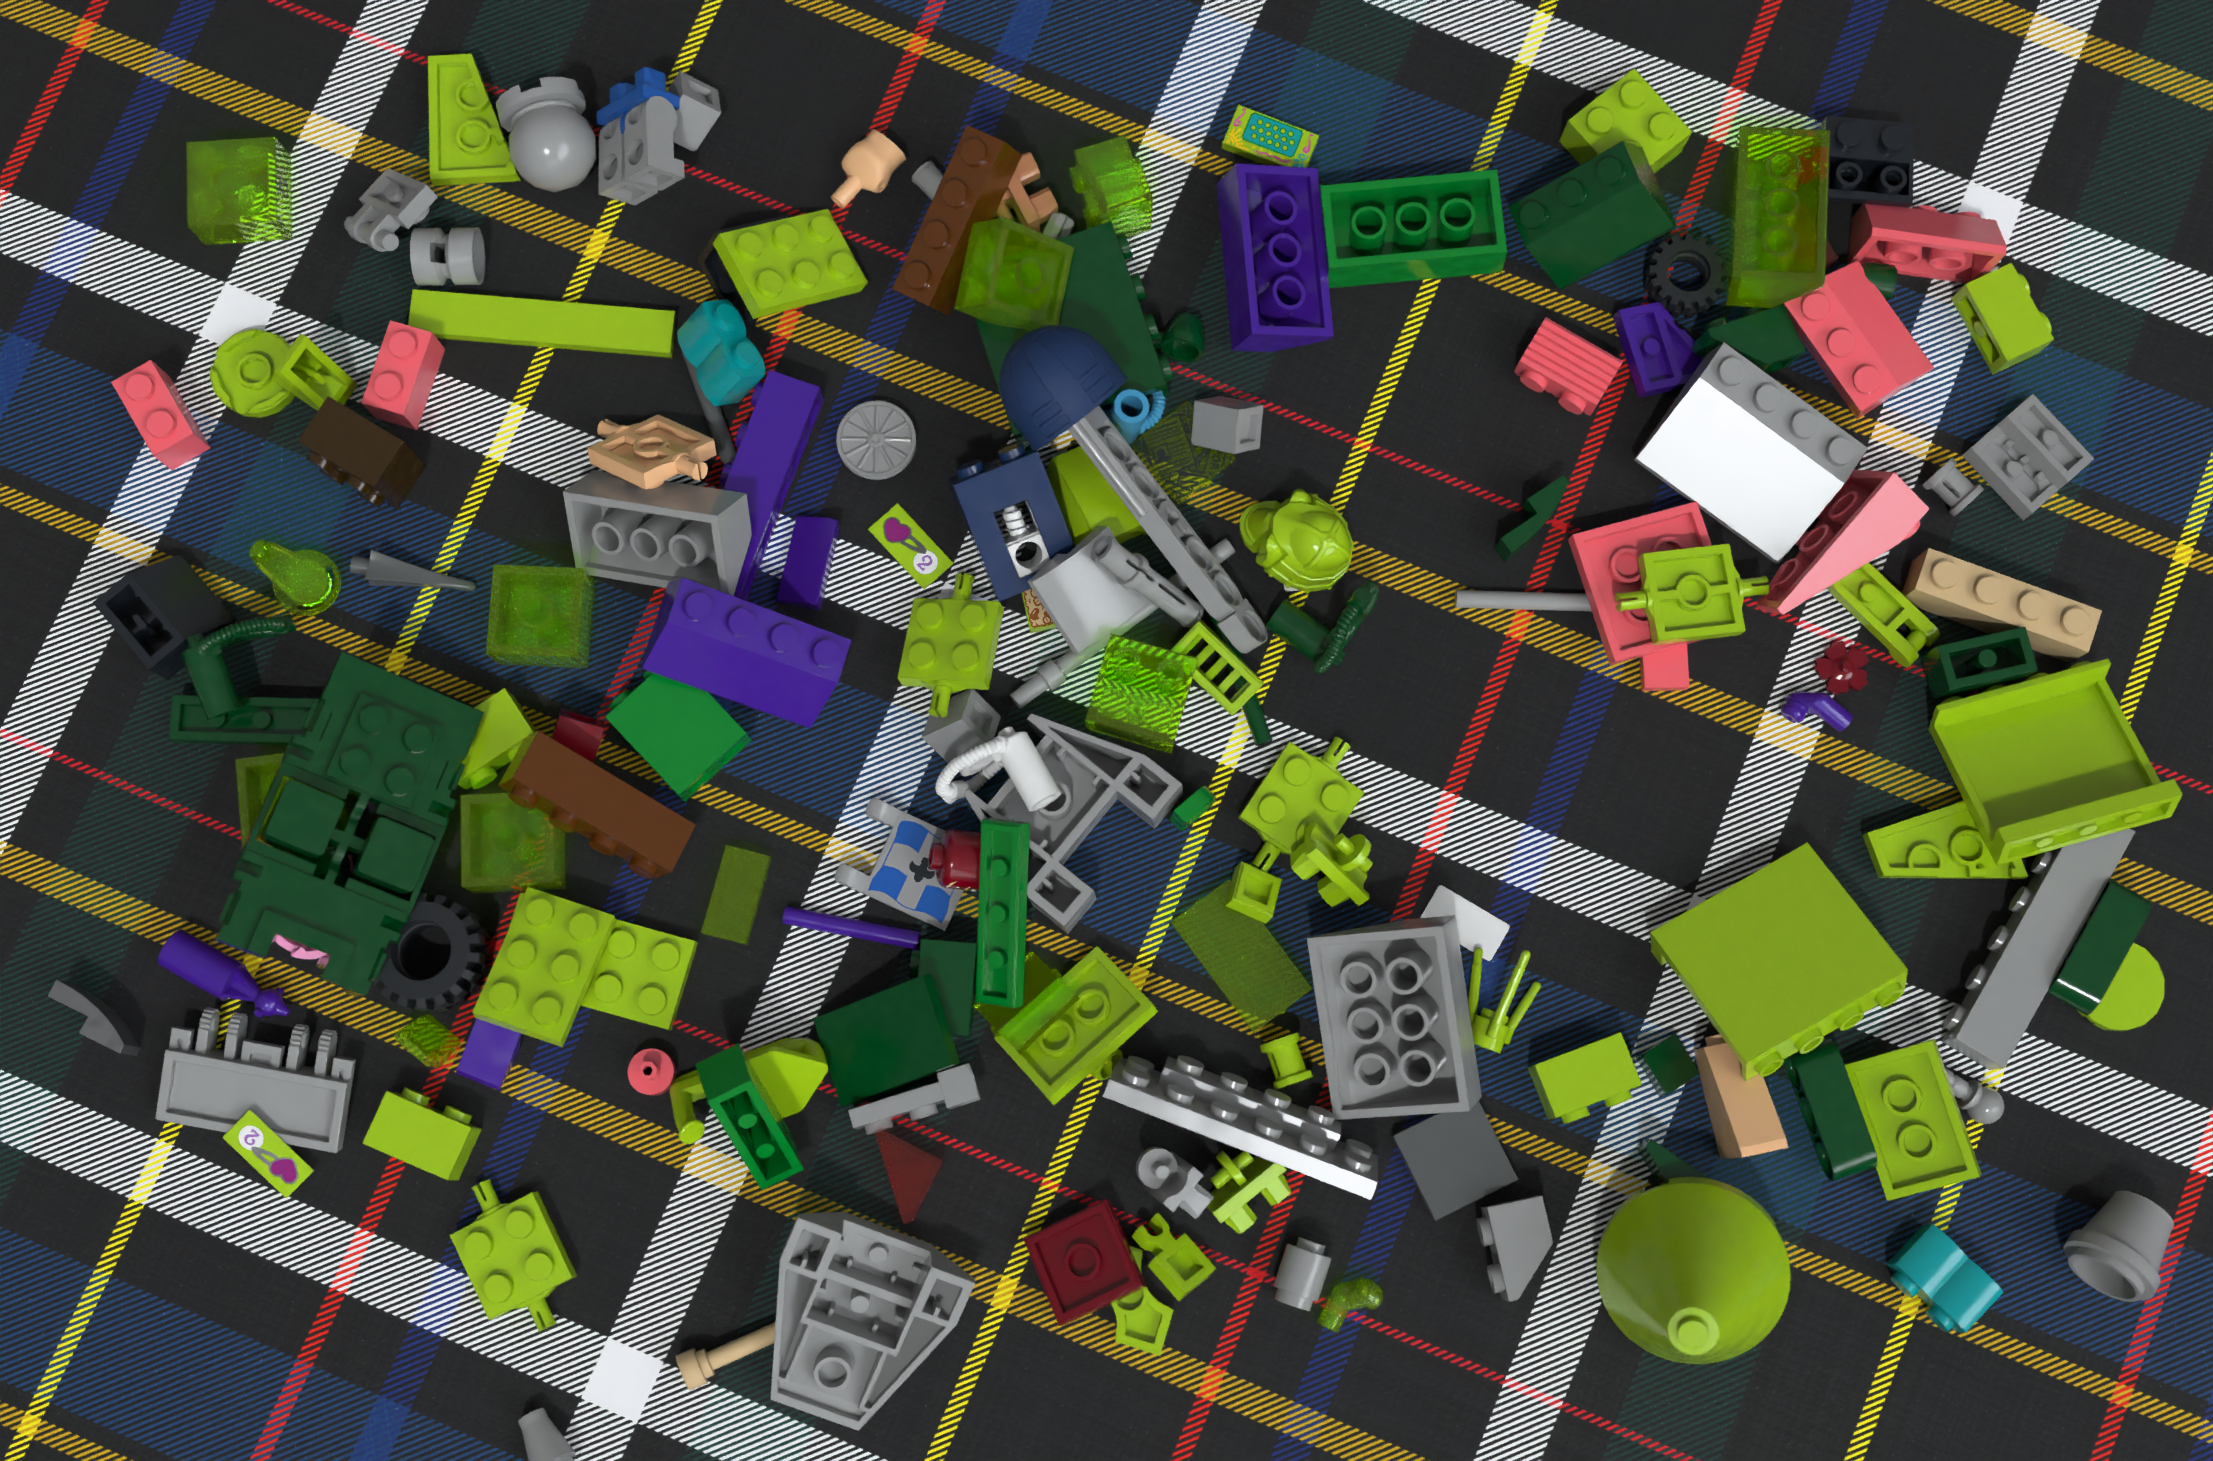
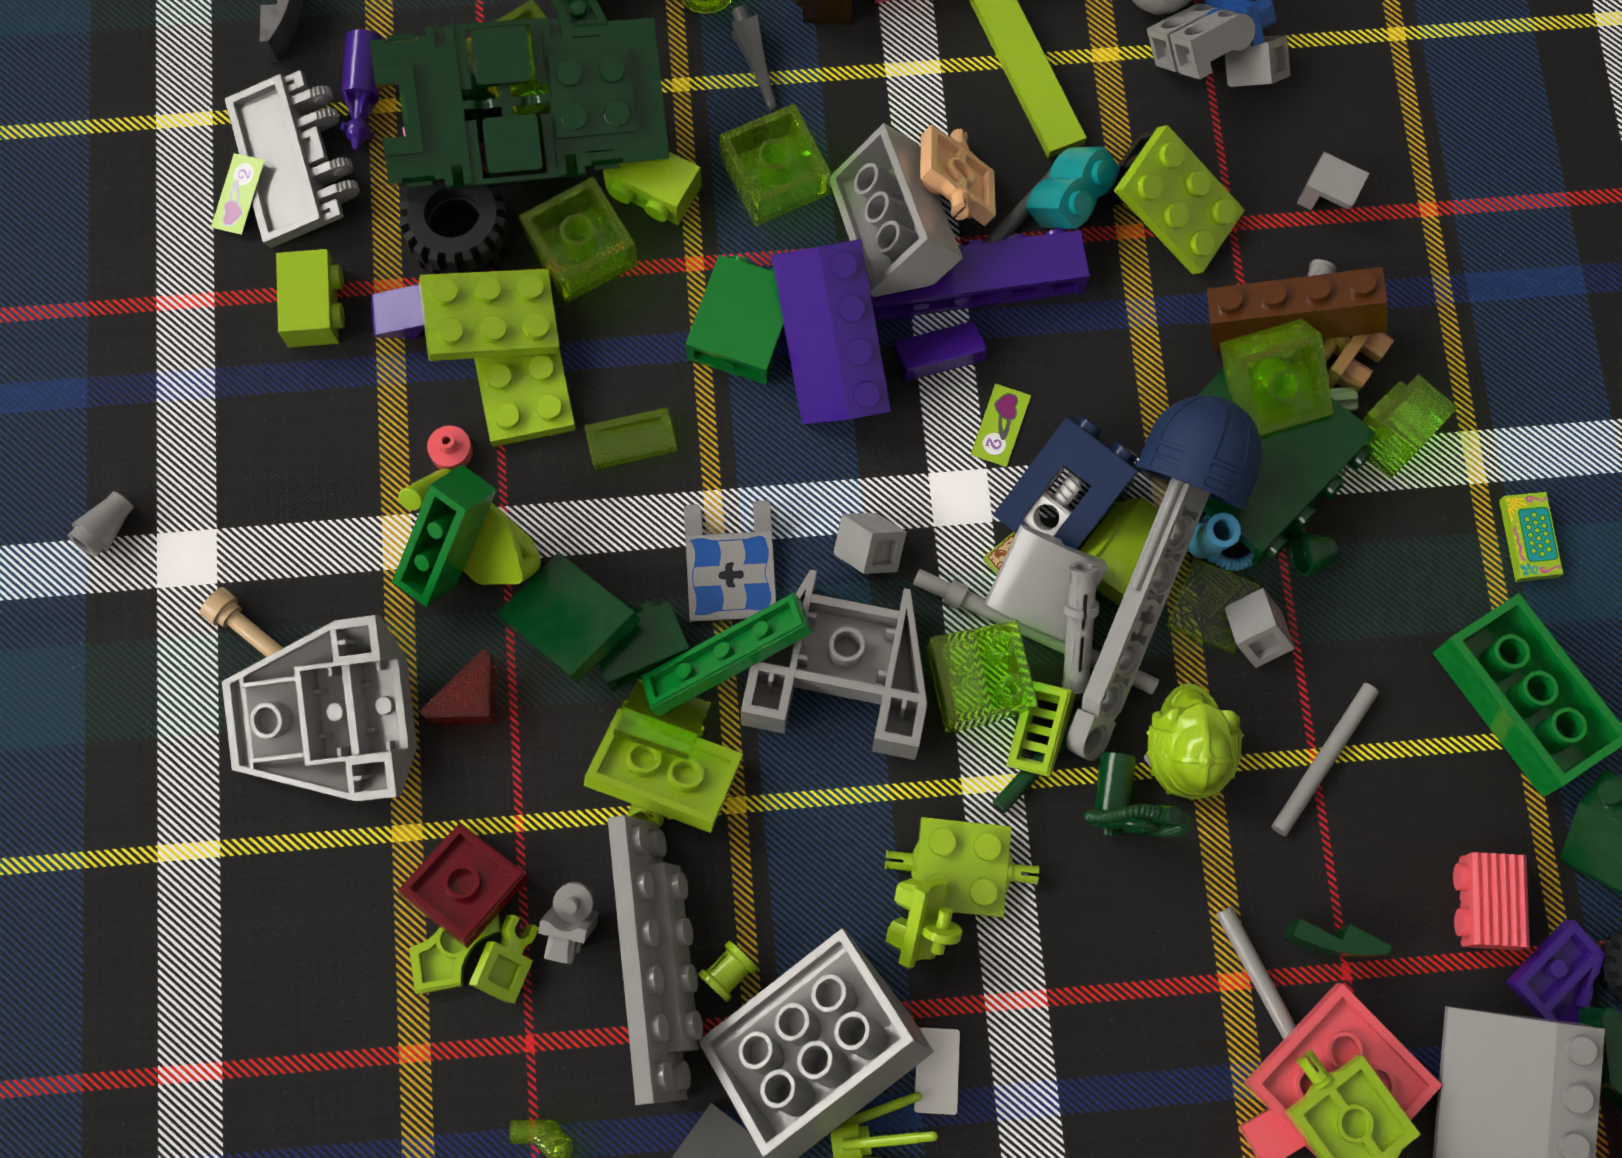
camera: 60 degrees right, 5 degrees down
(428, 1041) = (386, 263): clear neon green slope -> none
(513, 1255) = (246, 419): lime plate -> none
(578, 733) = (683, 244): dark red brick -> none
(596, 806) = (639, 283): reddish brown brick -> none
(849, 115) = (1333, 181): none -> light grey panel
(851, 927) = (652, 543): dark purple bar -> none
(868, 167) = (1300, 222): light nougat piece -> none
(876, 440) = (1073, 349): light grey wheel -> none
(951, 644) = (934, 496): lime plate -> none
(955, 1088) = (556, 694): light grey plate -> none
(957, 860) = (751, 594): dark red head -> none
(1007, 750) = (863, 588): white piece -> none
(1192, 808) = (907, 773): green tile -> none
(1239, 1183) = (597, 983): lime hips -> none
(1241, 958) = (800, 884): clear neon green piece -> none
(1253, 892) = (861, 864): lime tile -> none
(1274, 257) = (1431, 590): dark purple slope -> none
(1301, 1274) = (546, 1083): light grey brick -> none
(1371, 435) = (1325, 759): none -> light grey bar

